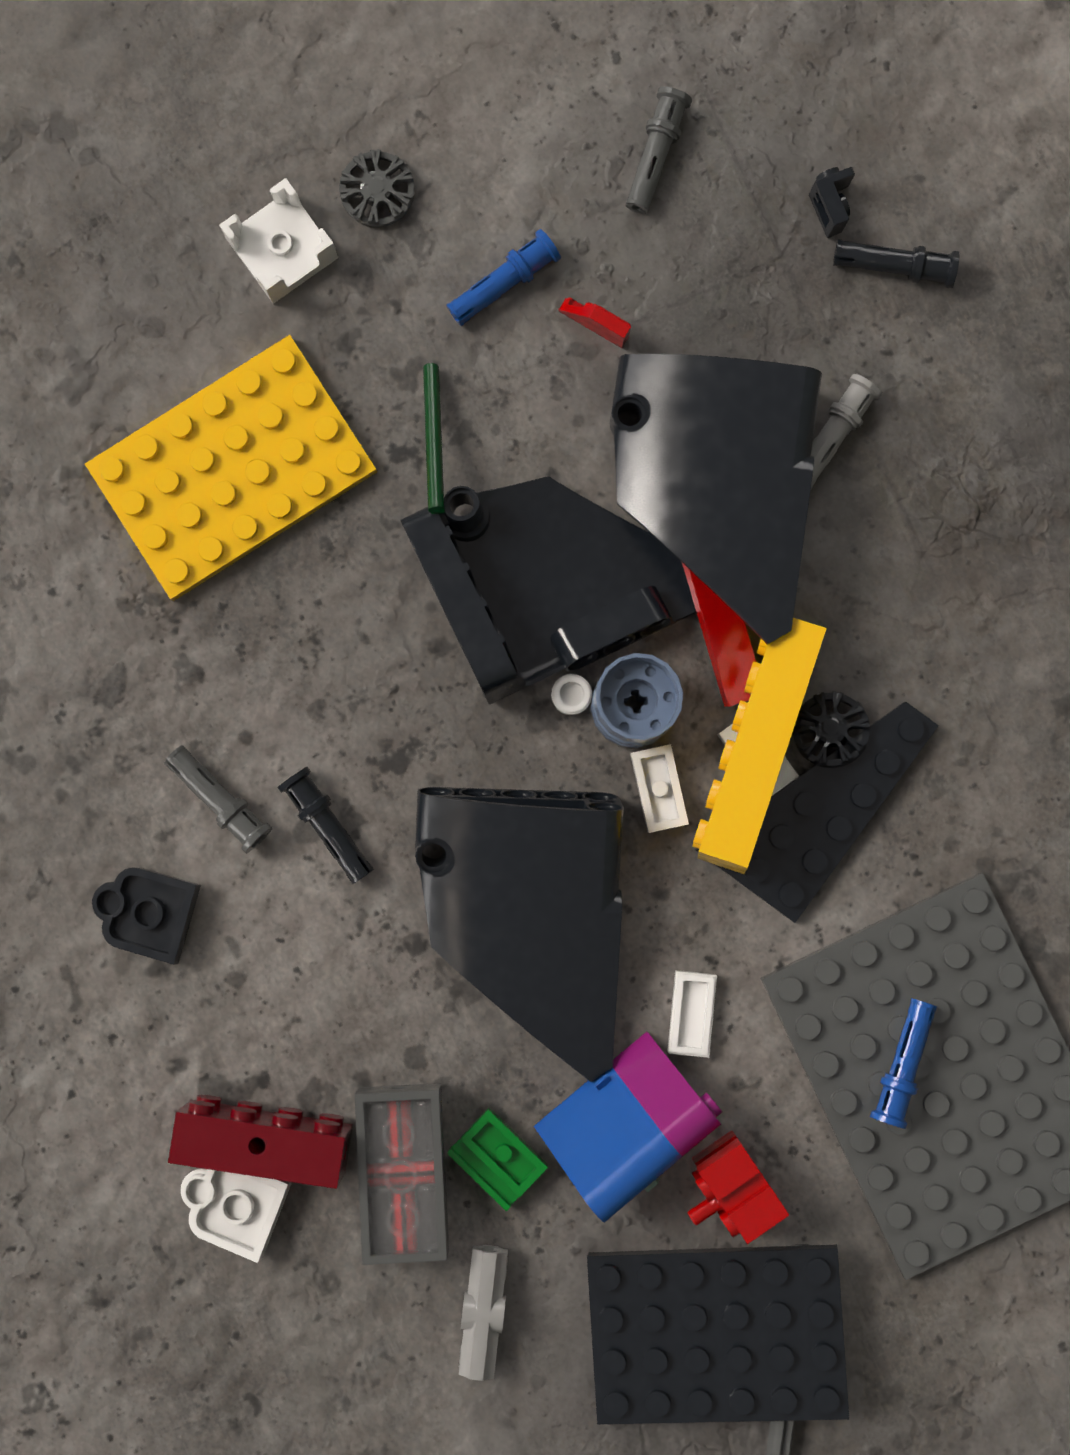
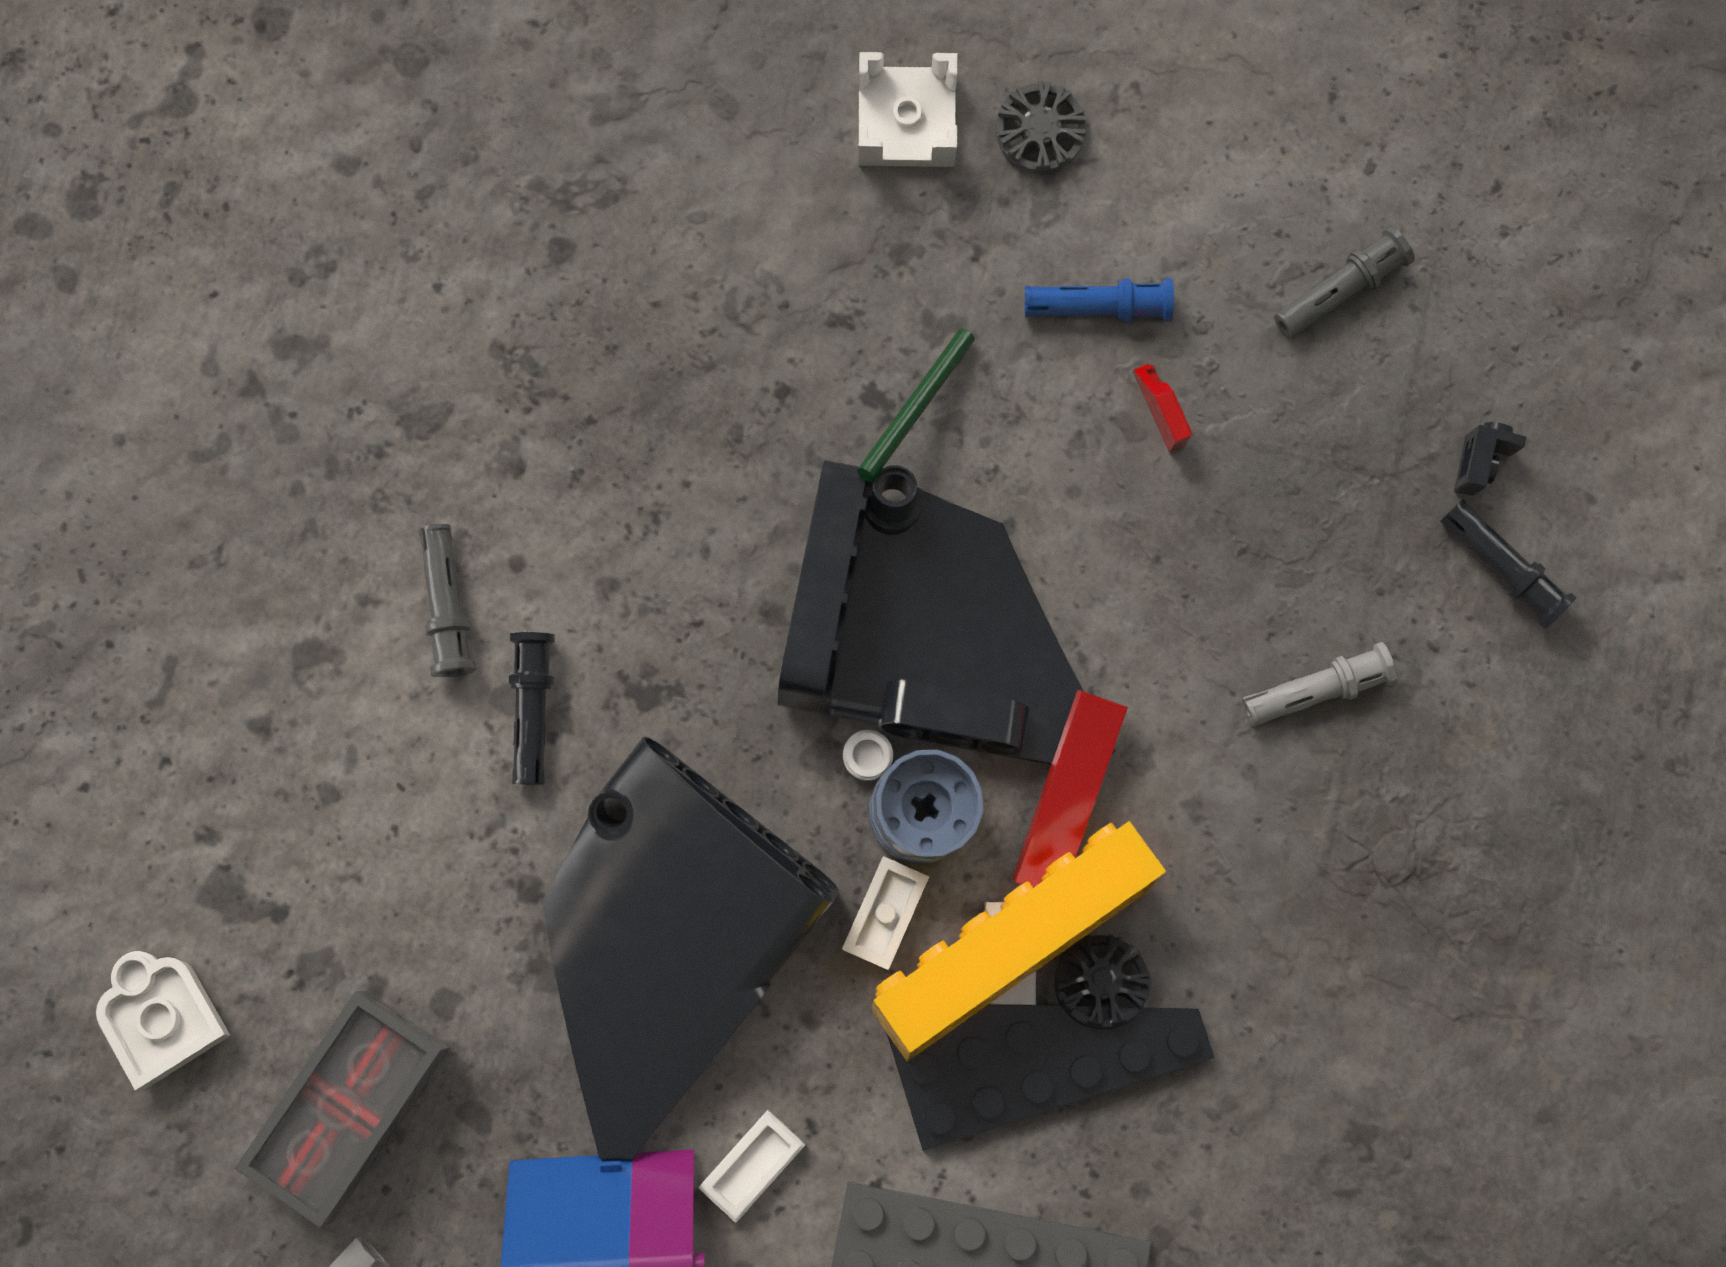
camera: 35 degrees right, 5 degrees down
(146, 913) = (291, 663): black plate -> none
(231, 468) = (699, 293): yellow plate -> none
(261, 1142) = (230, 971): dark red brick -> none
(497, 1159) = (448, 1166): green plate -> none
(721, 472) = (1176, 643): black panel -> none

